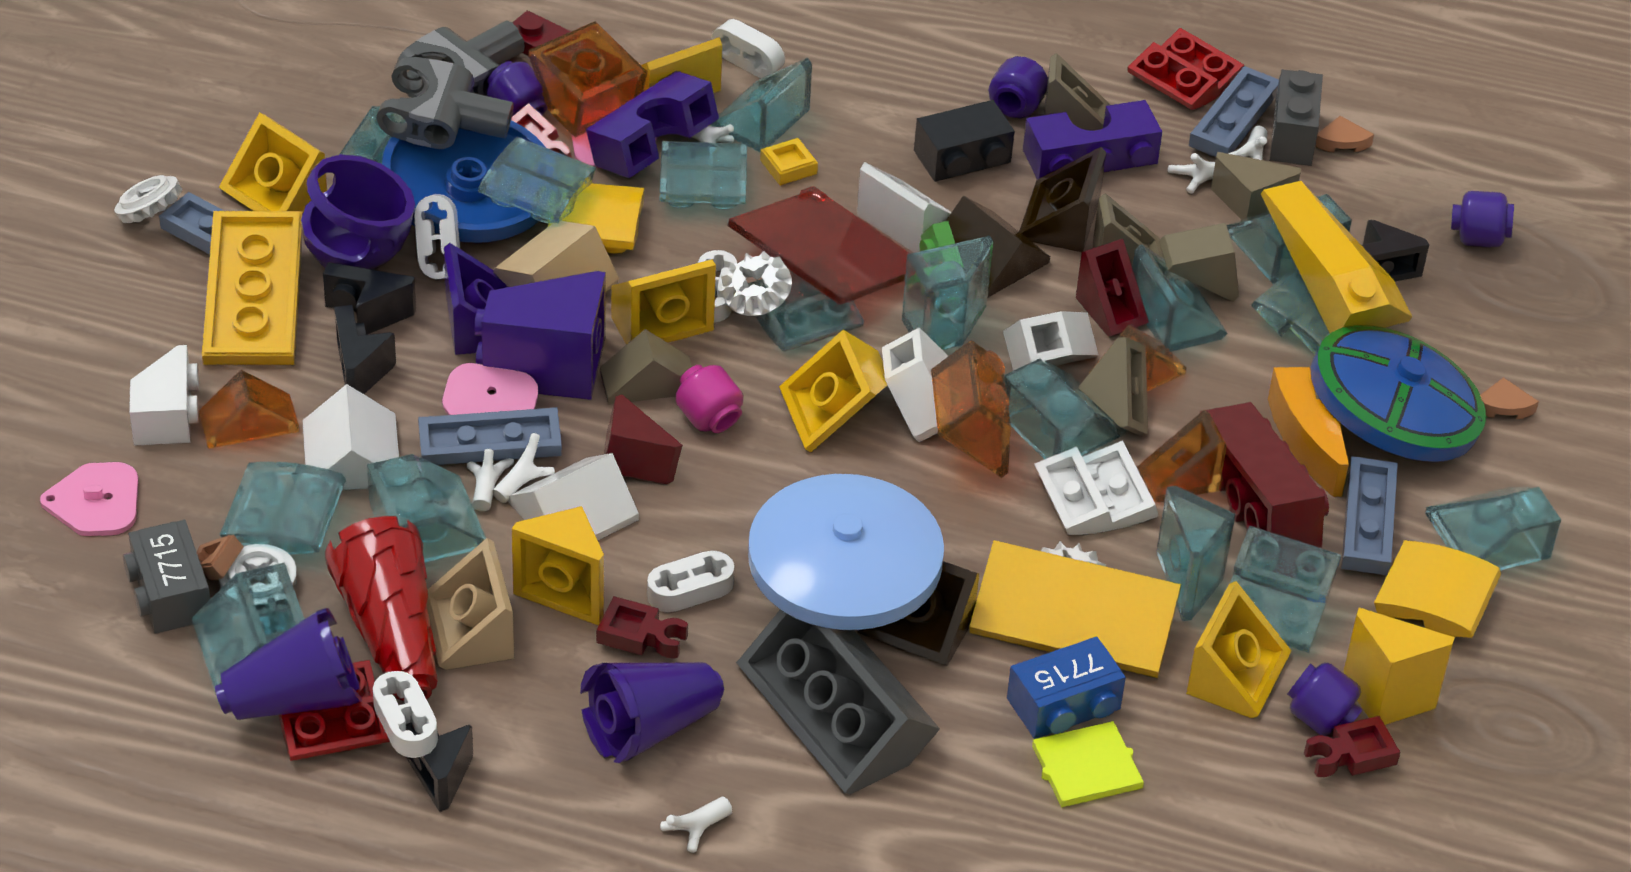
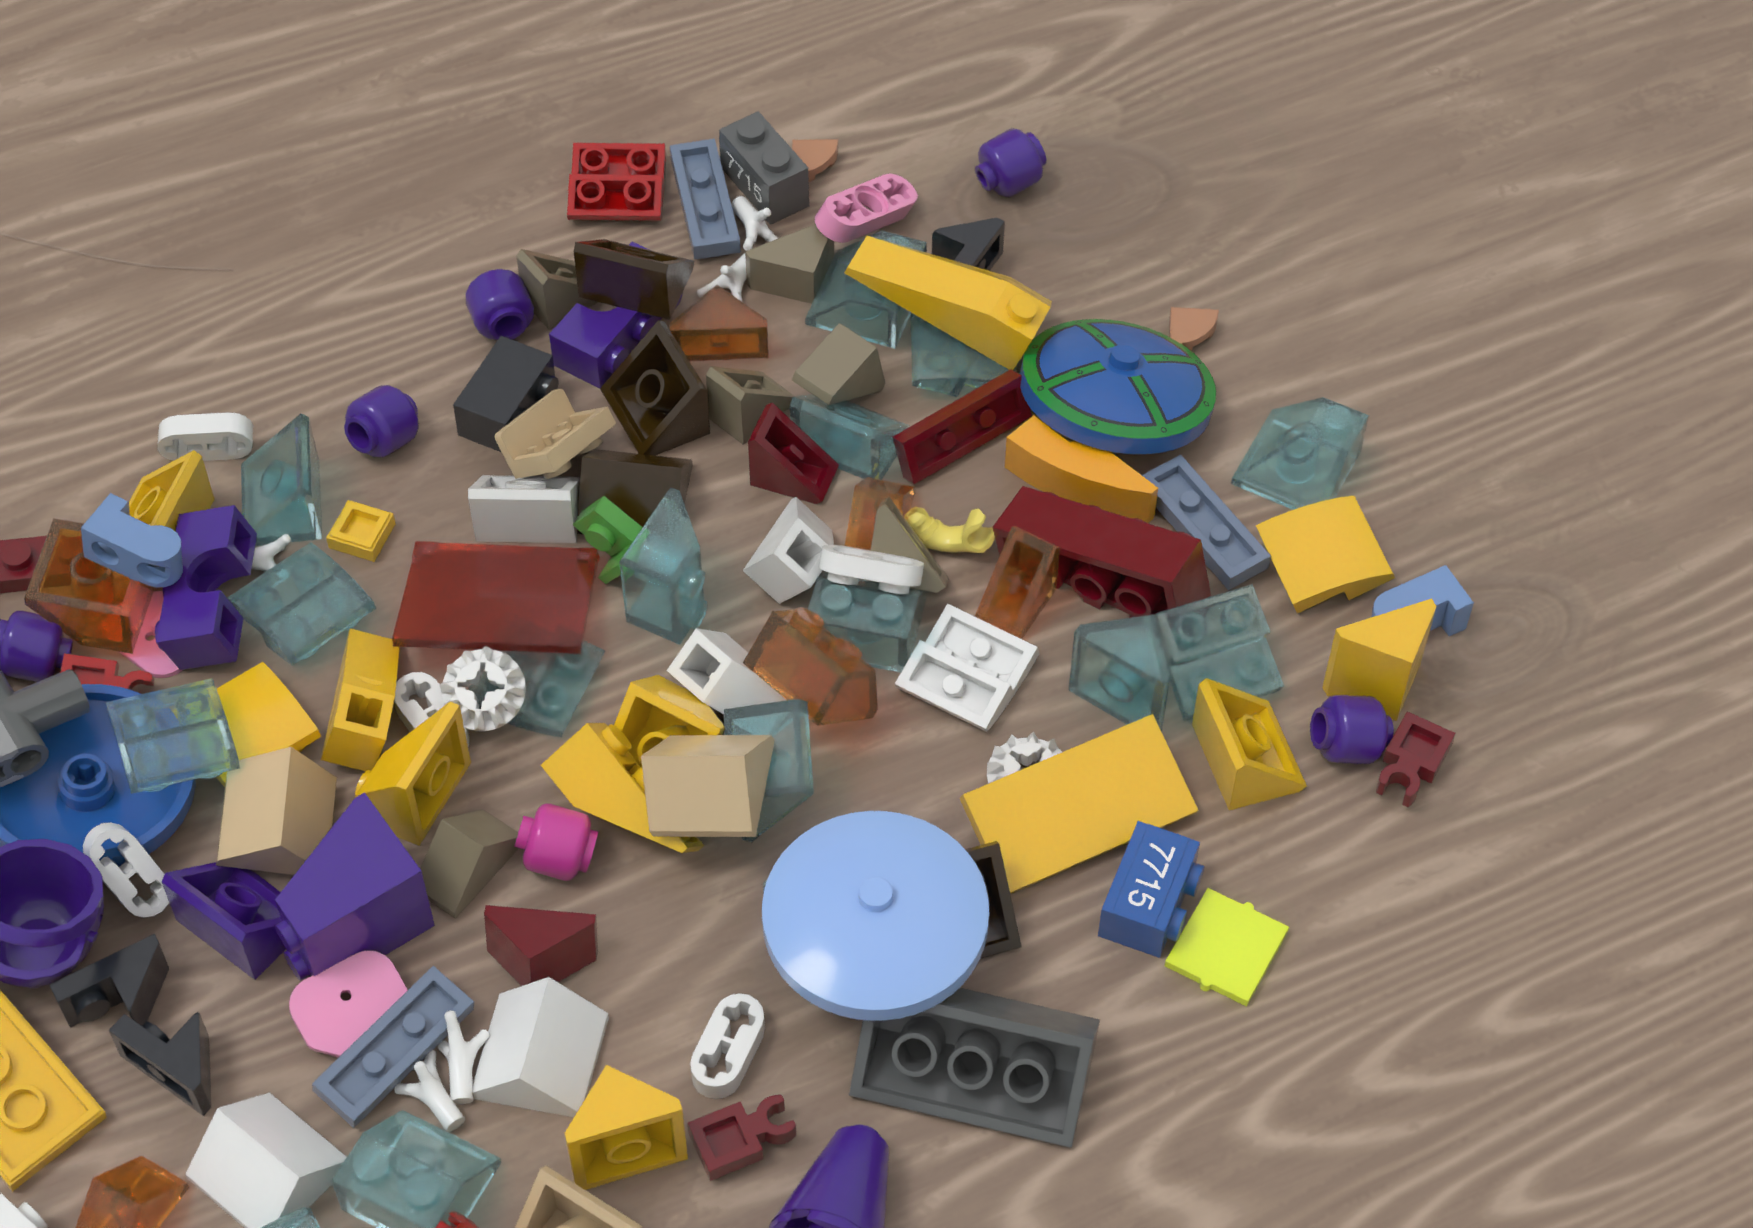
camera: 40 degrees left, 10 degrees up
(619, 60) = (131, 545): none -> medium blue leg
(677, 241) = (362, 701): none -> yellow slope
(776, 383) = (607, 781): none -> yellow slope
(821, 411) = (706, 784): none -> tan slope
(866, 106) = (381, 421): none -> dark purple head
(879, 430) = (791, 763): none -> clear light blue slope
(963, 172) = (551, 435): none -> tan bracket
(1069, 363) = (850, 564): none -> white plate
(1114, 112) = (630, 276): none -> slope
(1150, 190) = (721, 329): none -> clear orange slope
(1167, 402) = (944, 538): none -> light yellow piece
(1250, 346) = (961, 427): none -> dark red plate
(1365, 186) = (845, 217): none -> bright pink beam
(1479, 669) = (1441, 585): none -> medium blue leg

